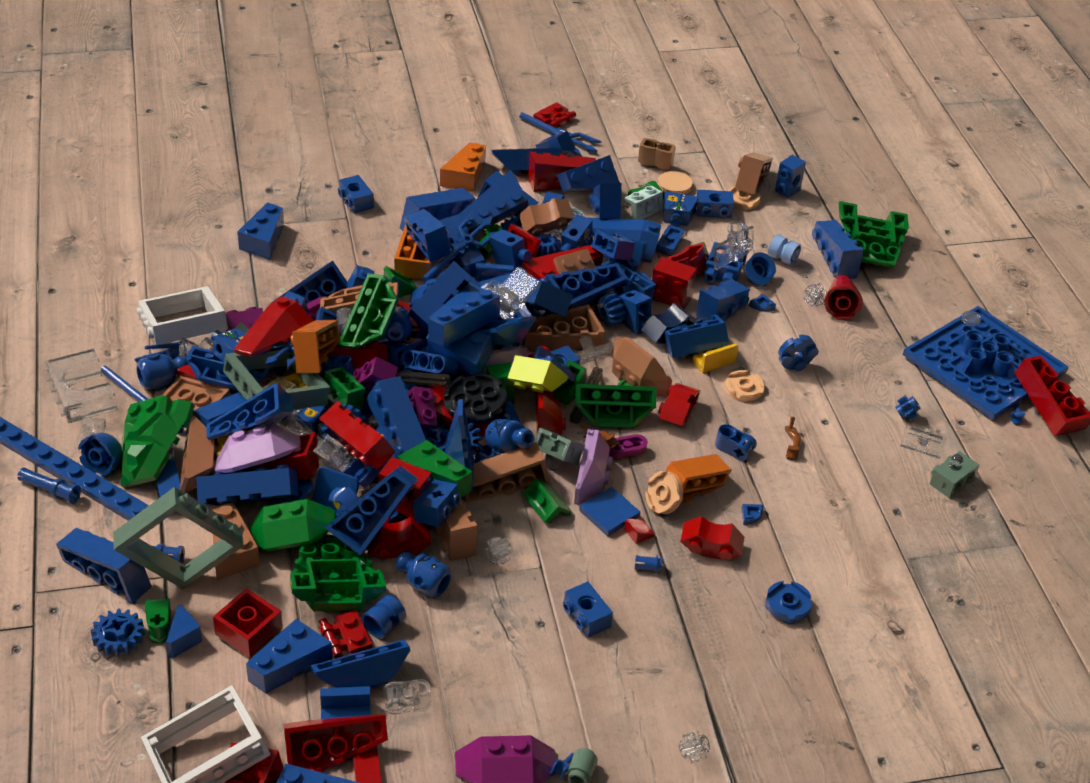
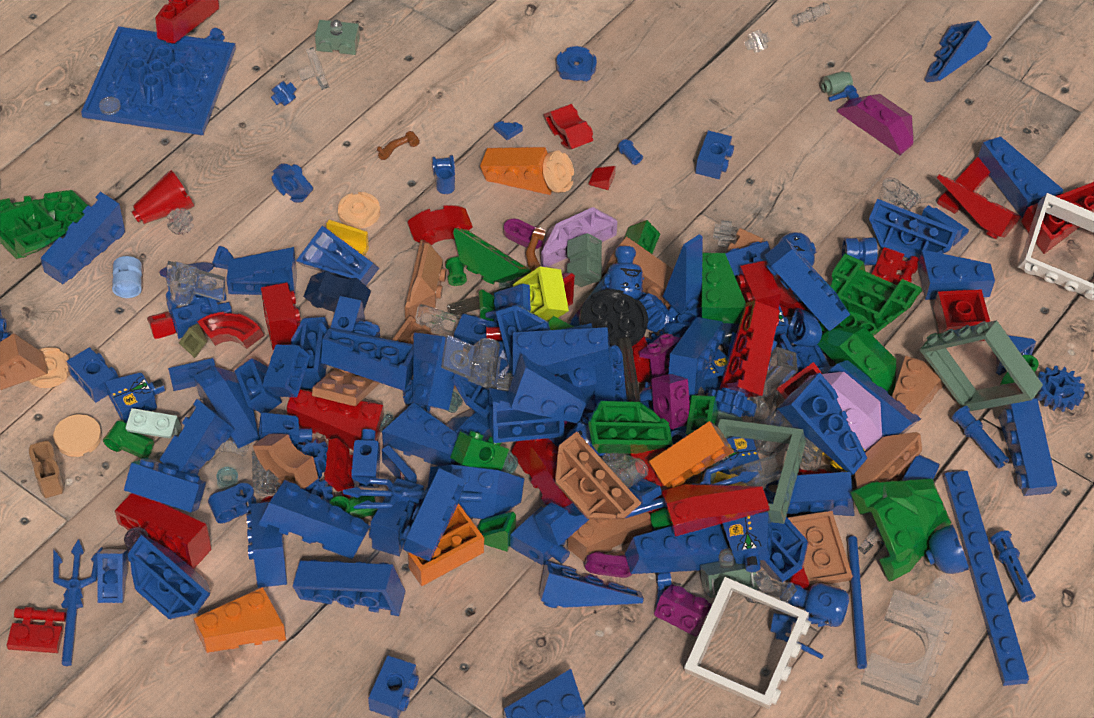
camera: 130 degrees left, 10 degrees up
(609, 511) = (606, 200): blue tile -> none

